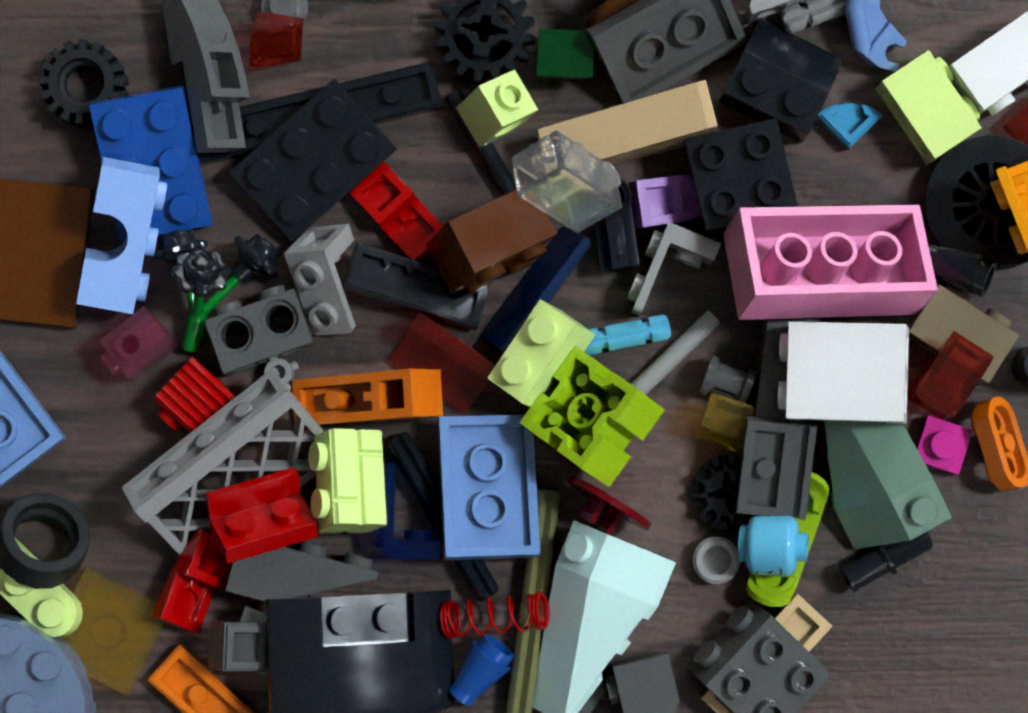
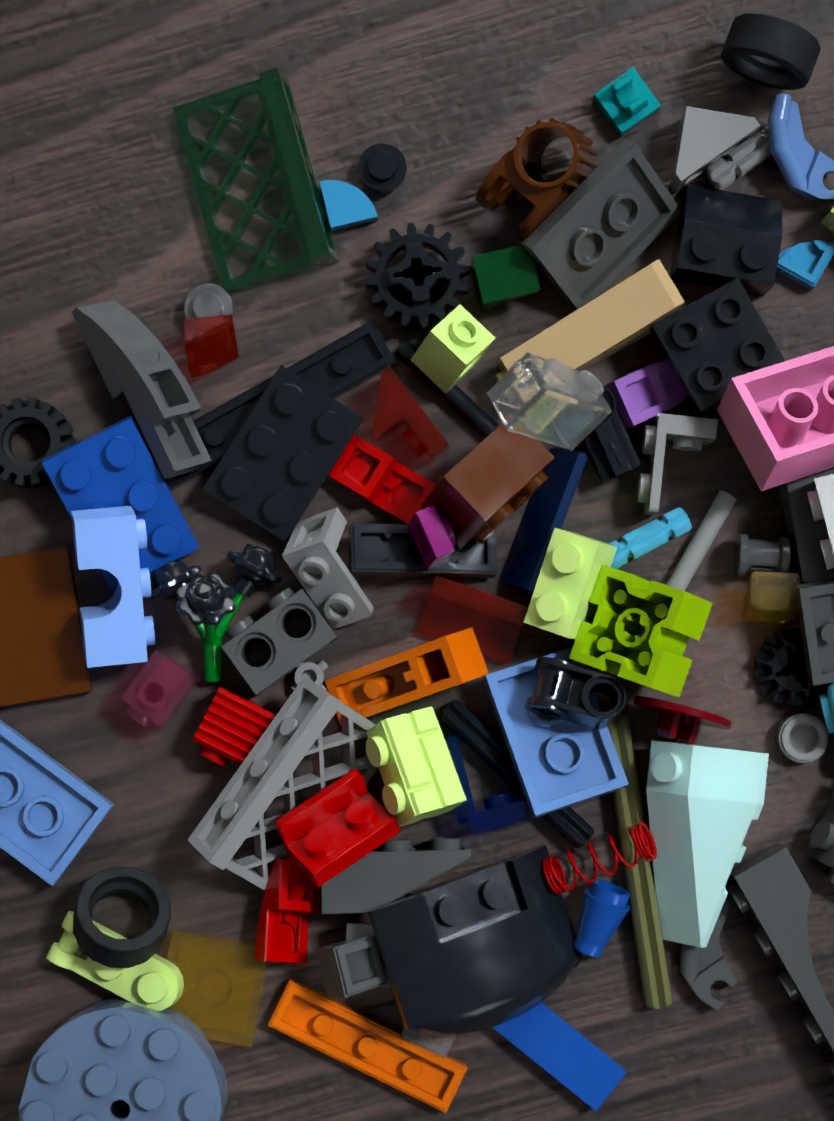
camera: 20 degrees left, 0 degrees up
(426, 275) = (432, 536): none -> magenta plate
(431, 149) = (398, 407): none -> clear red slope
(511, 455) = (572, 693): none -> black piece

